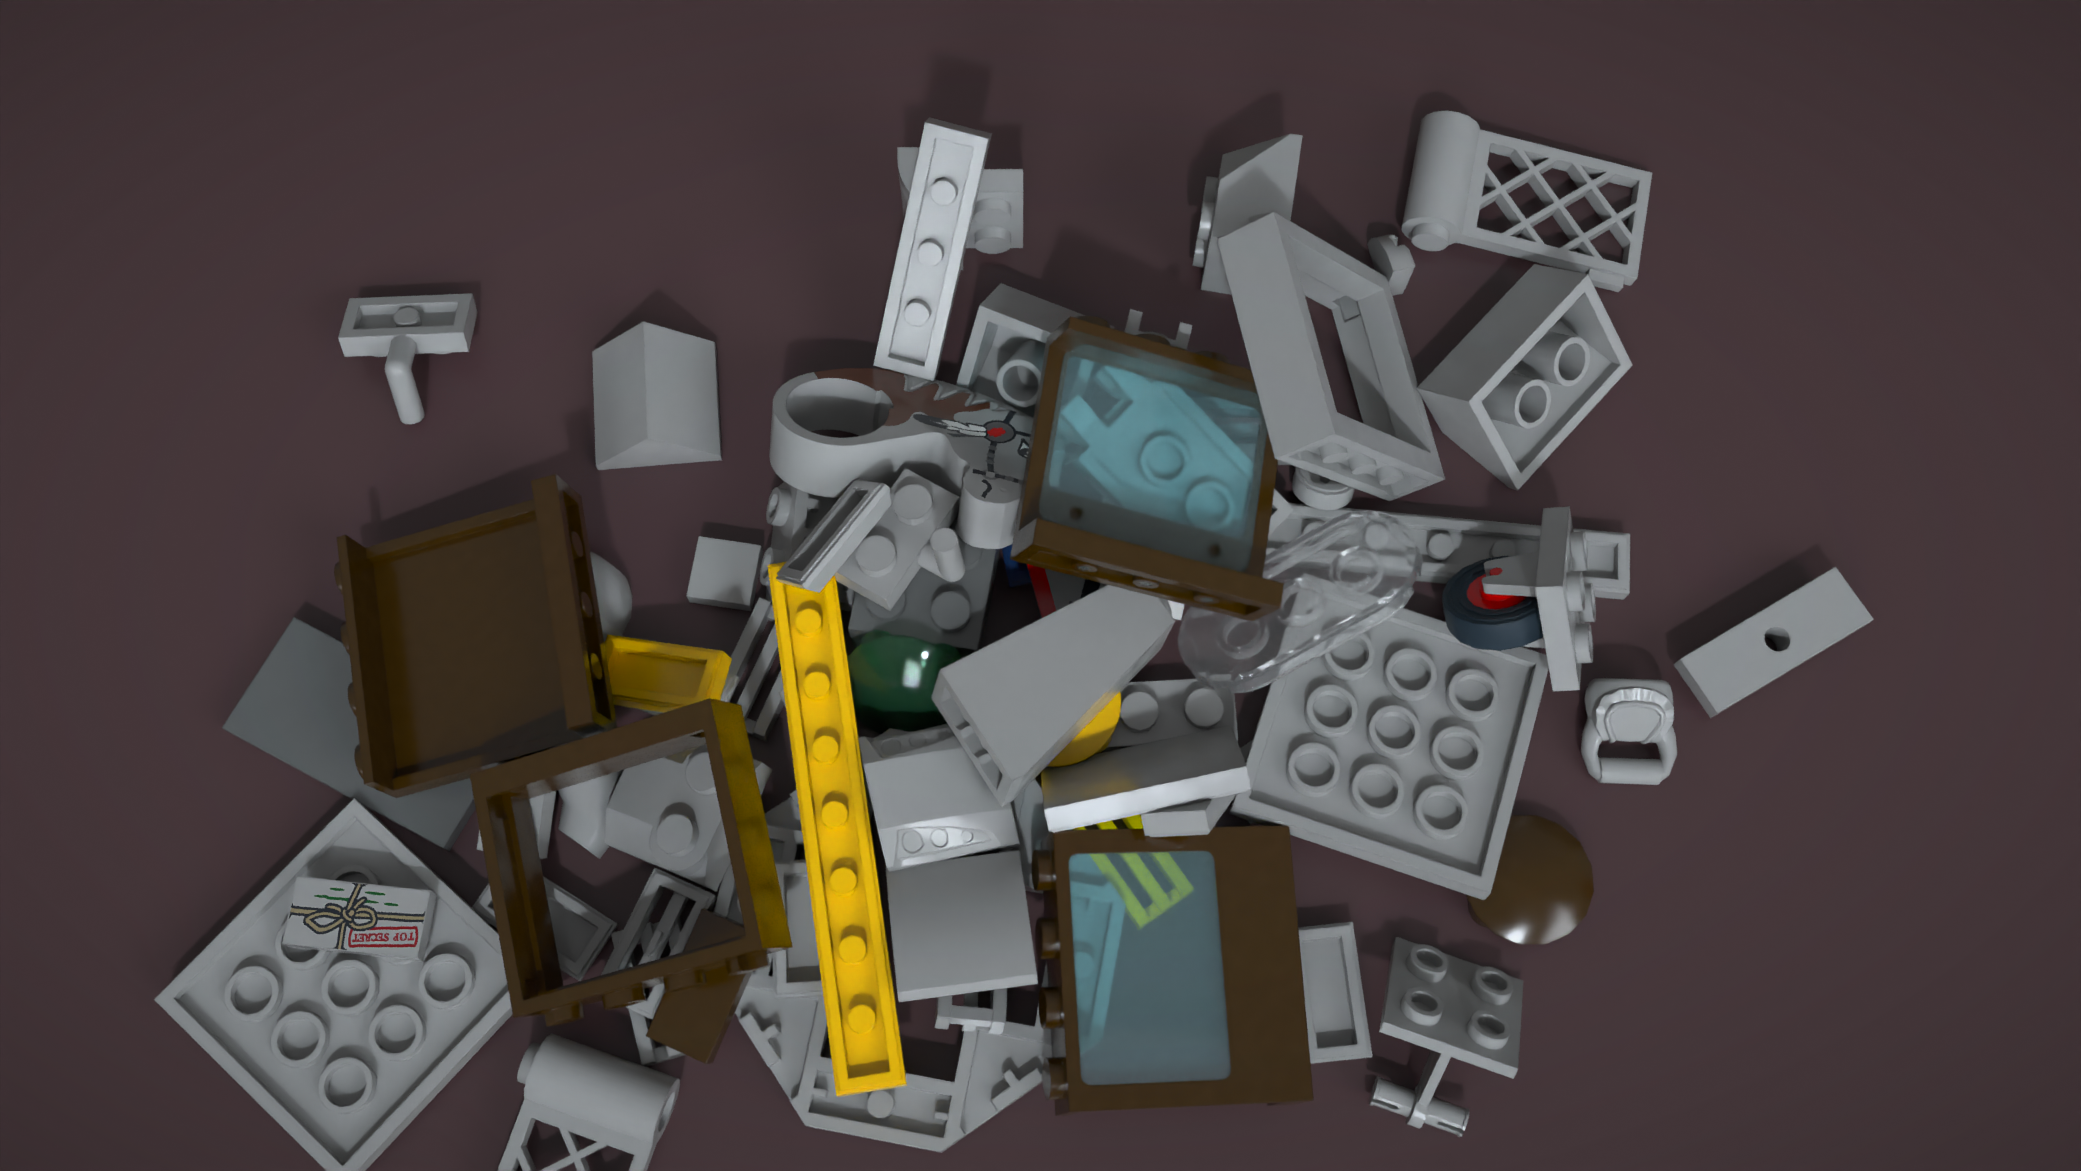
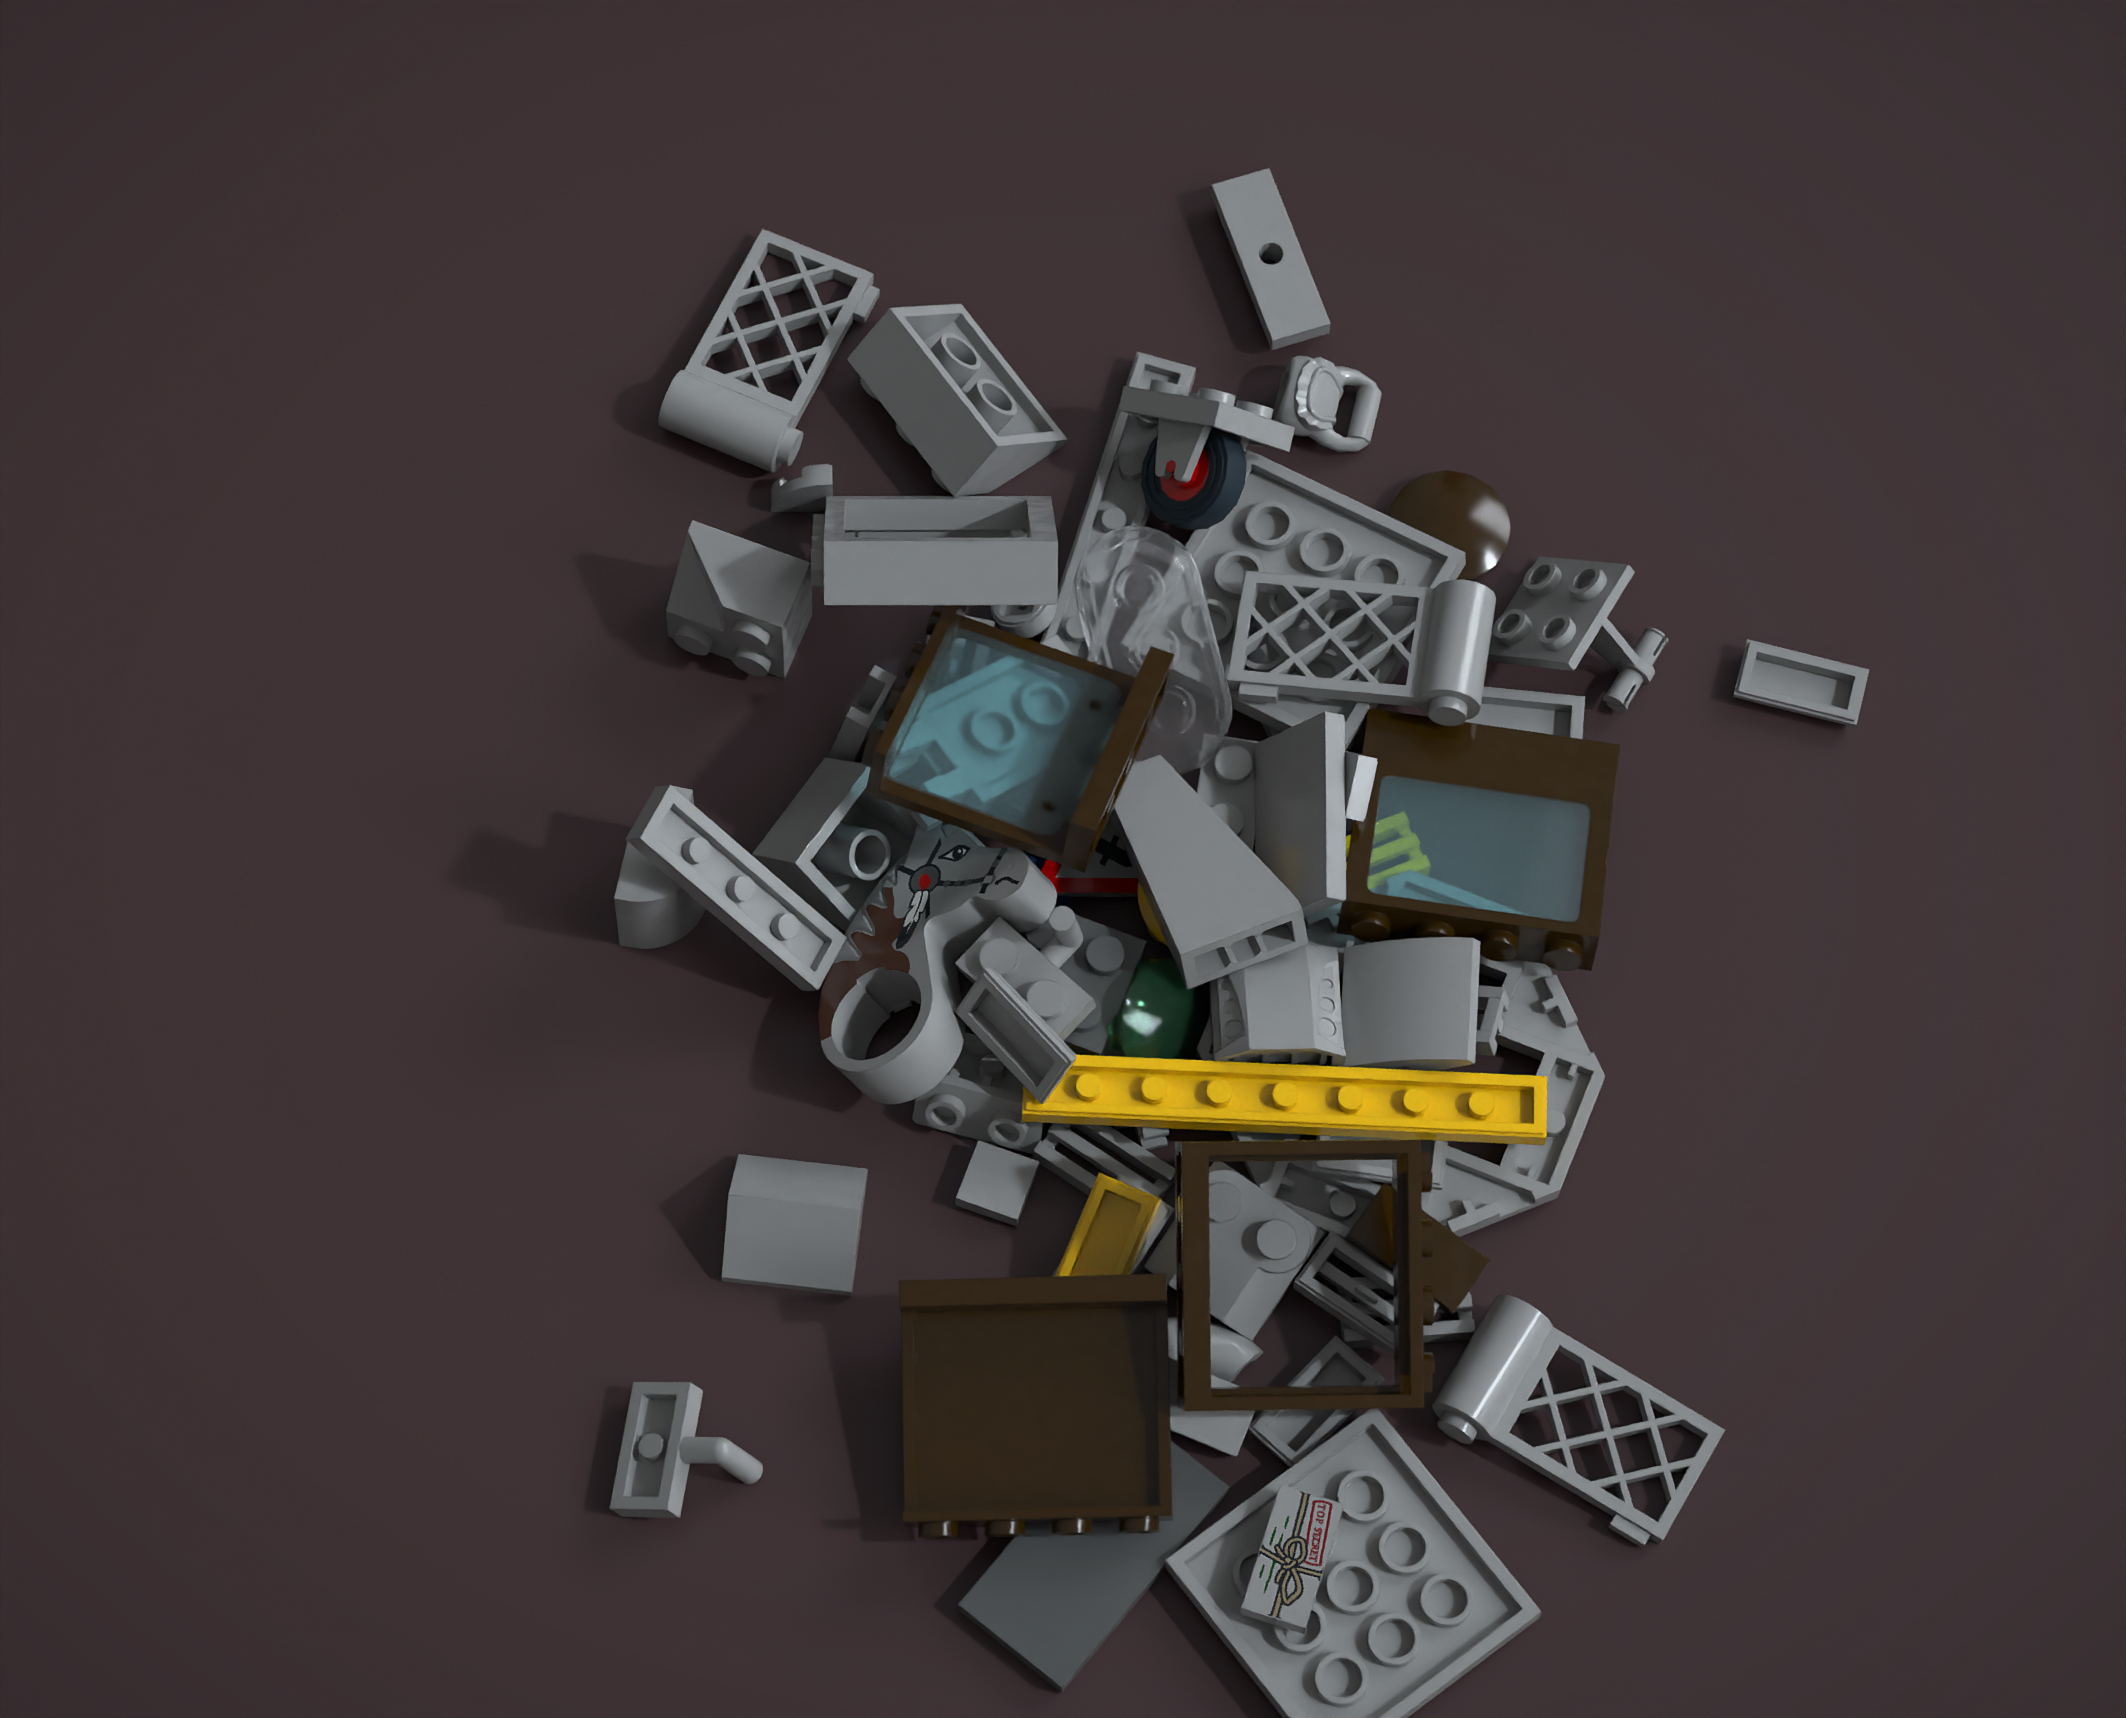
camera: 80 degrees left, 5 degrees down
(1349, 889) = (1445, 656): none -> light grey piece

